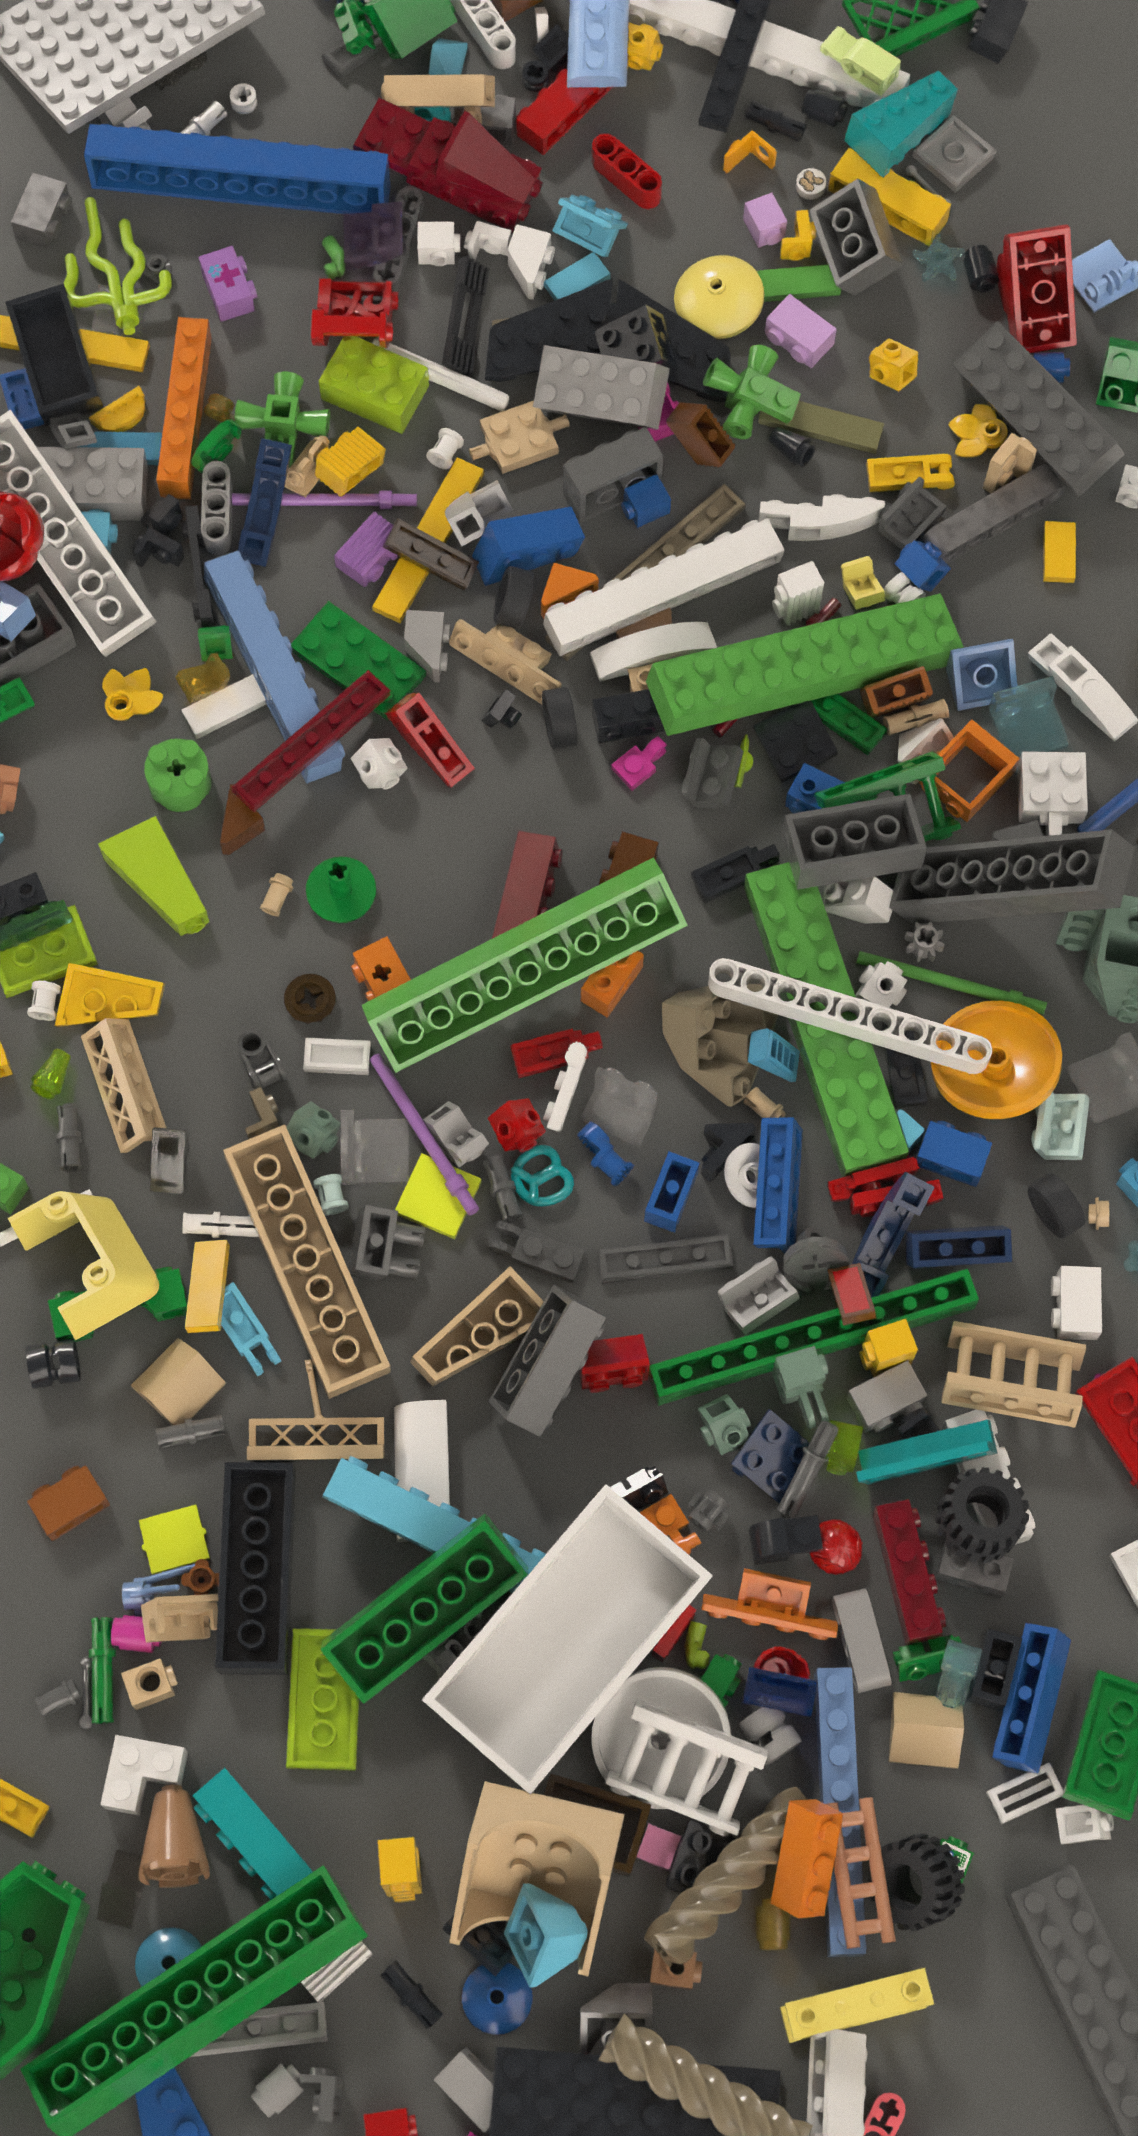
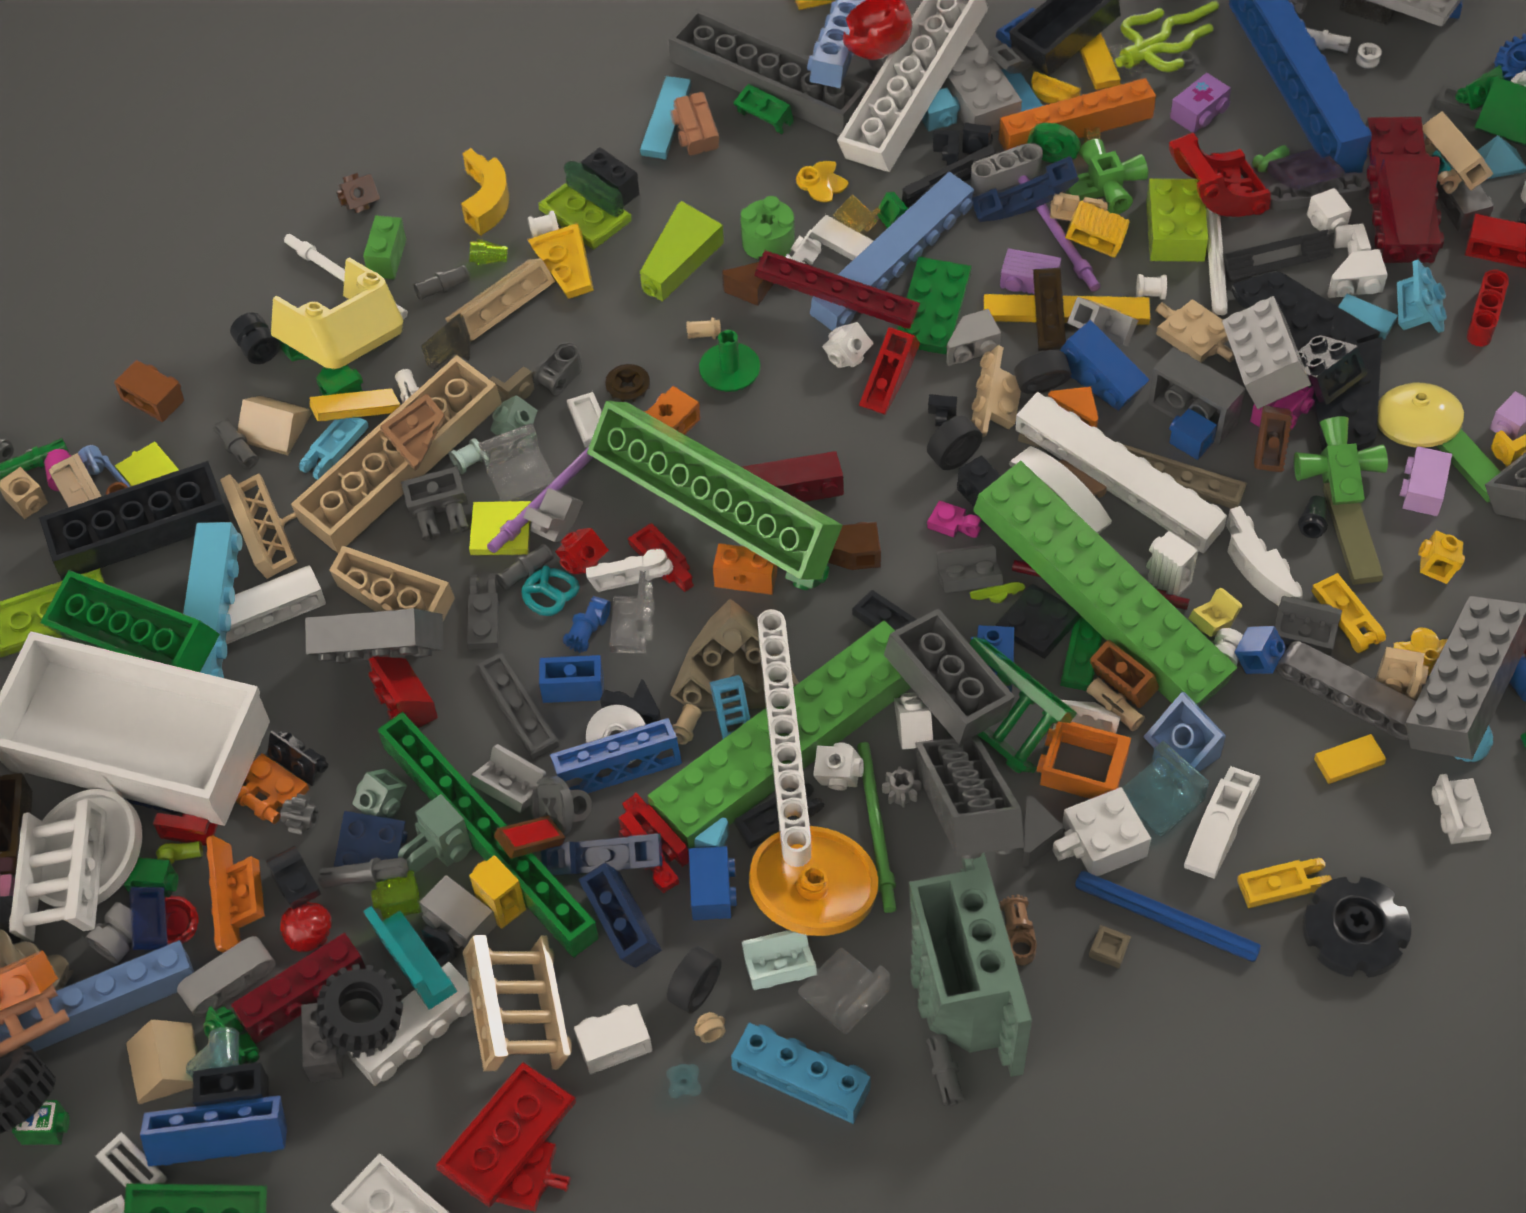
camera: 70 degrees right, 15 degrees down
(221, 753) = (805, 249): none -> white hinge
(308, 1228) = (414, 429): none -> medium nougat wing

